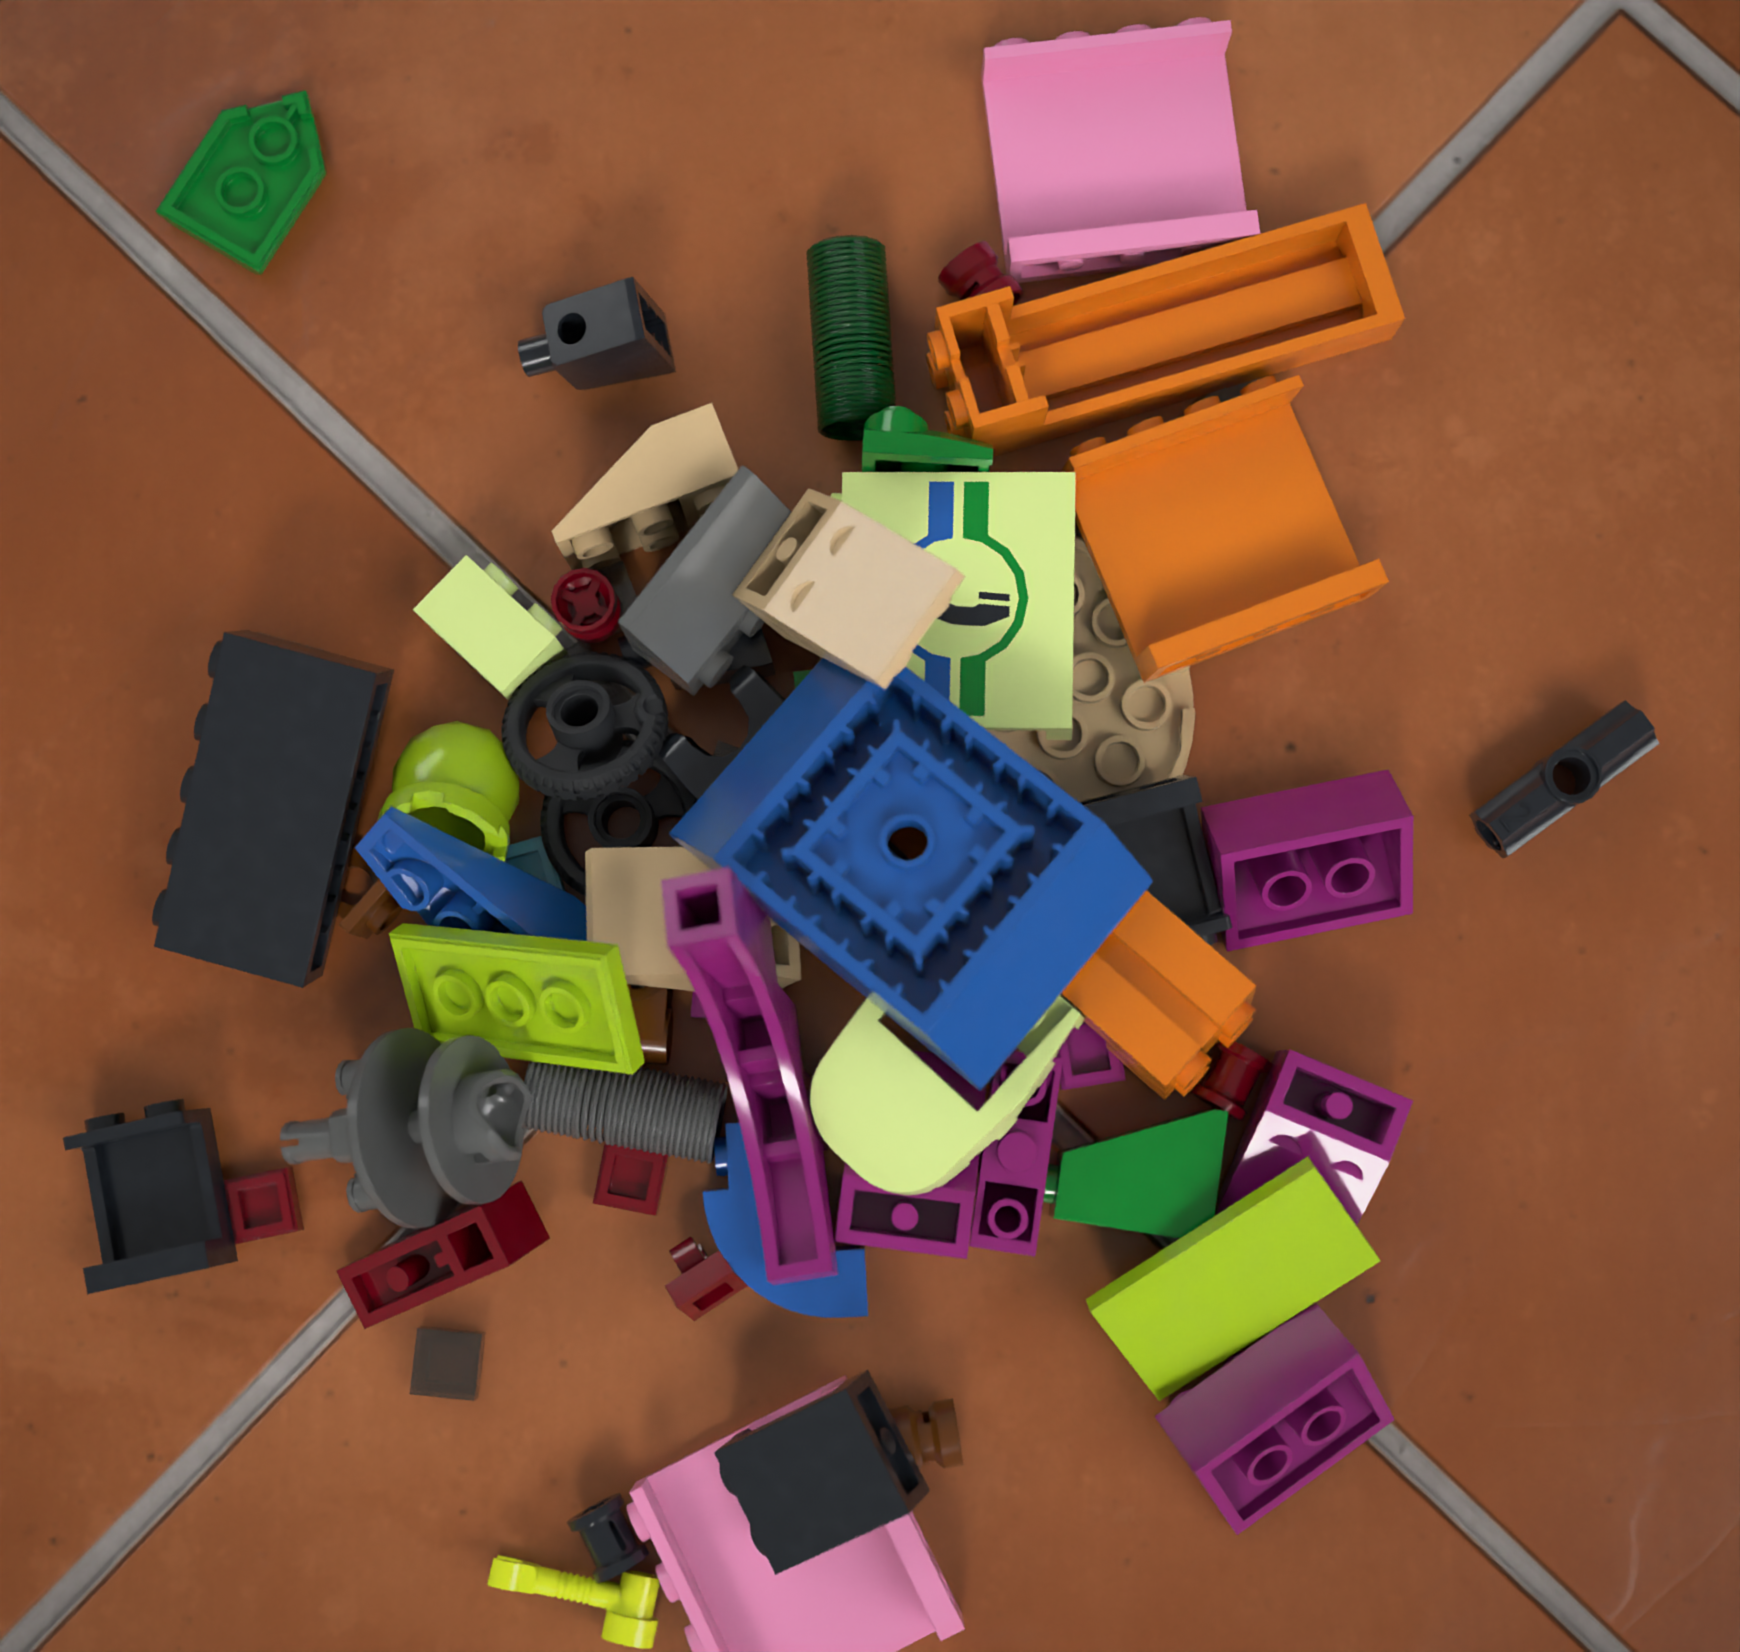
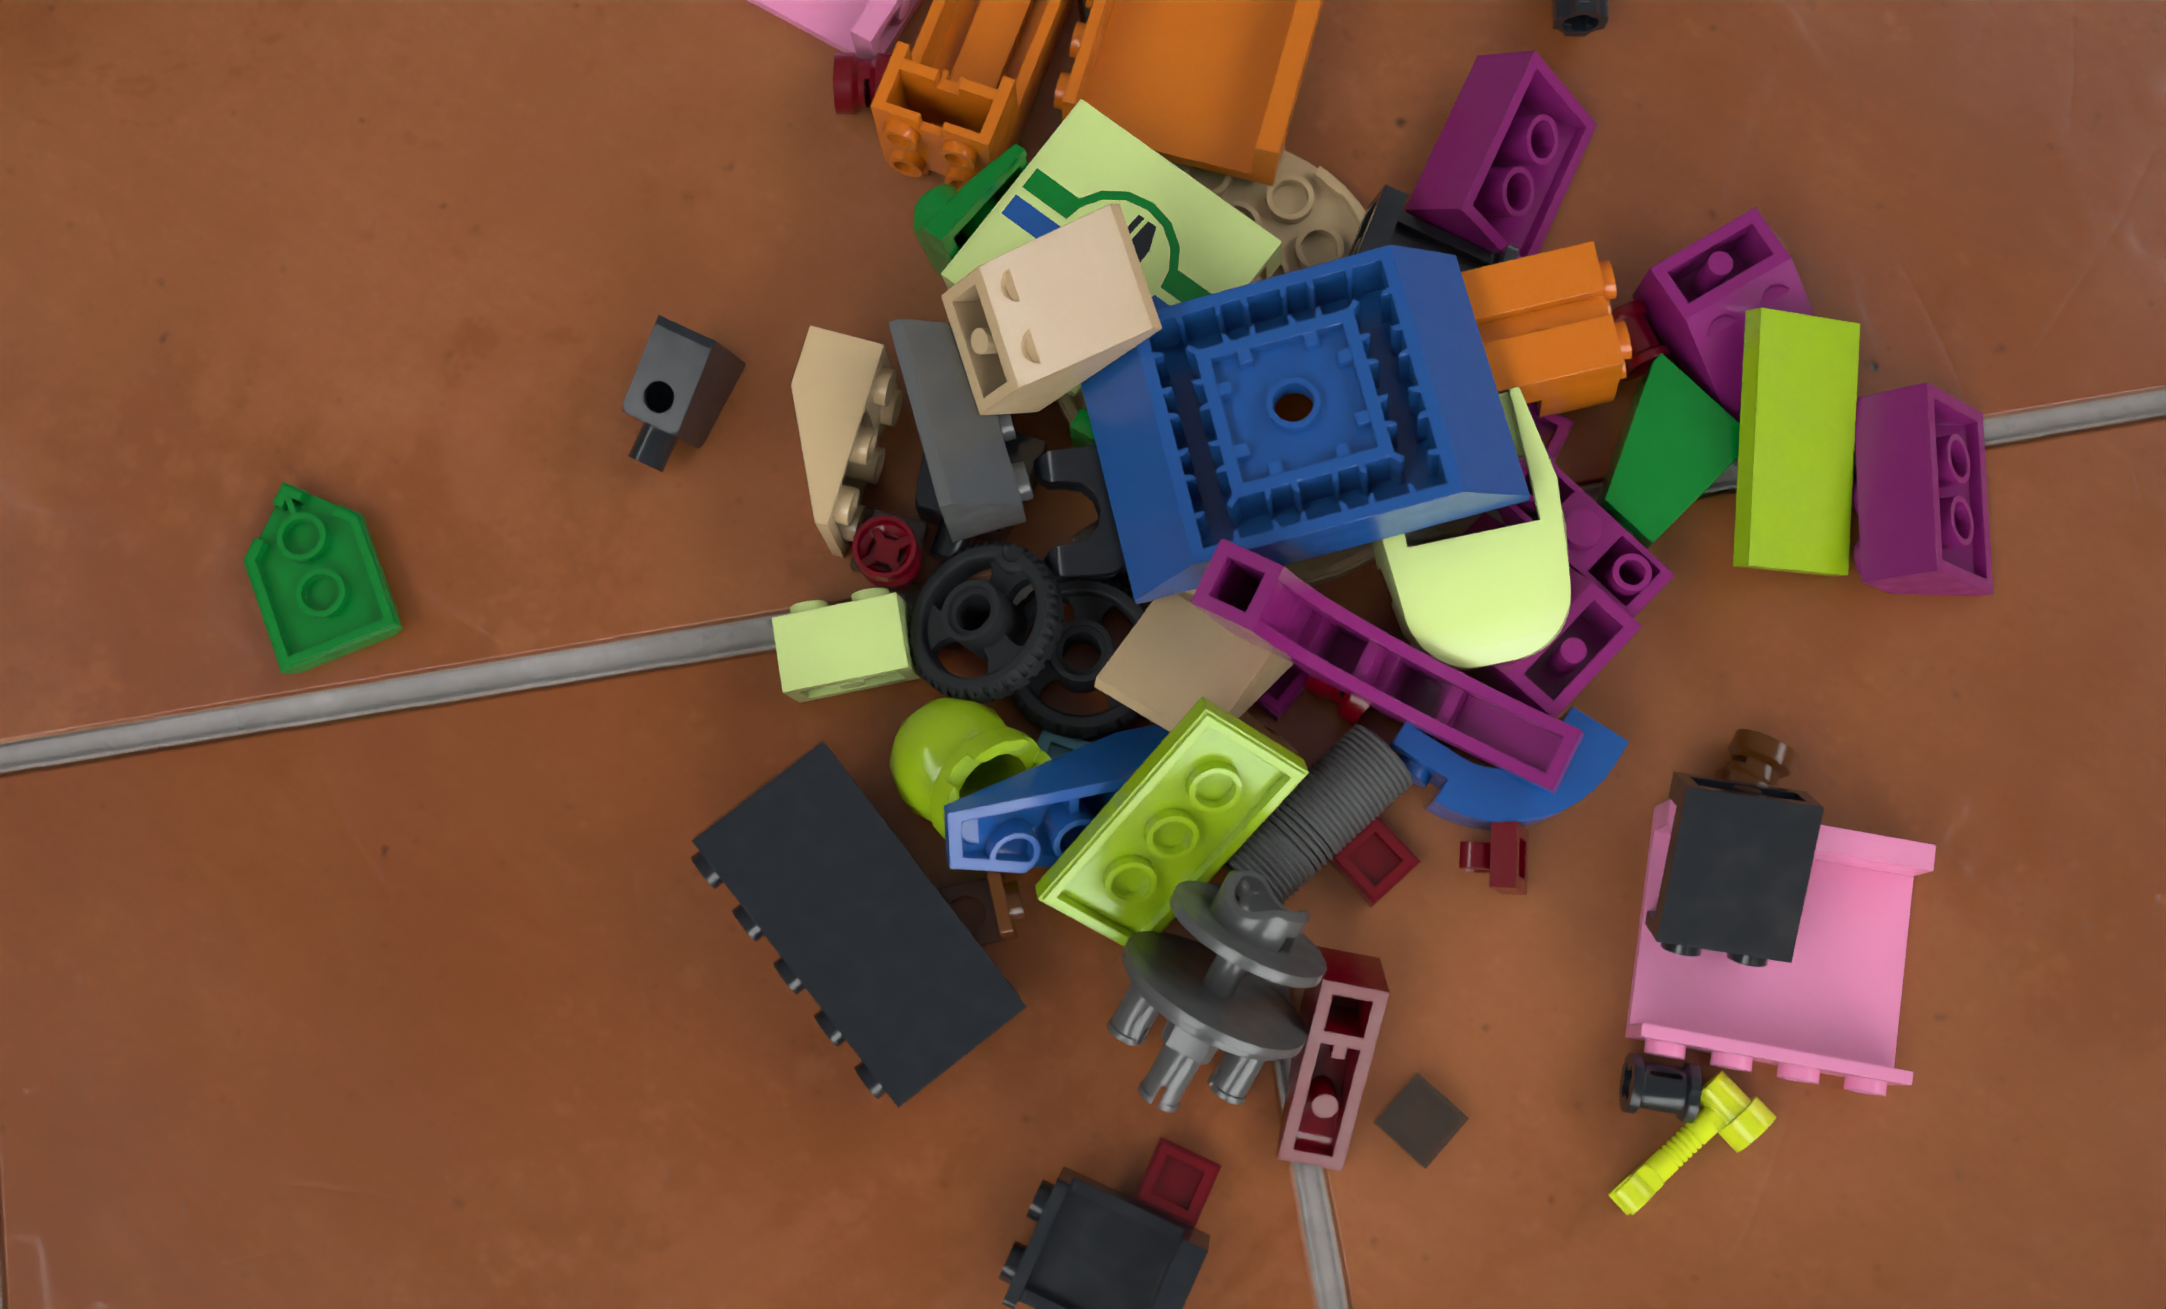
camera: 50 degrees left, 5 degrees down
(852, 329) = (822, 200): dark green piece -> none

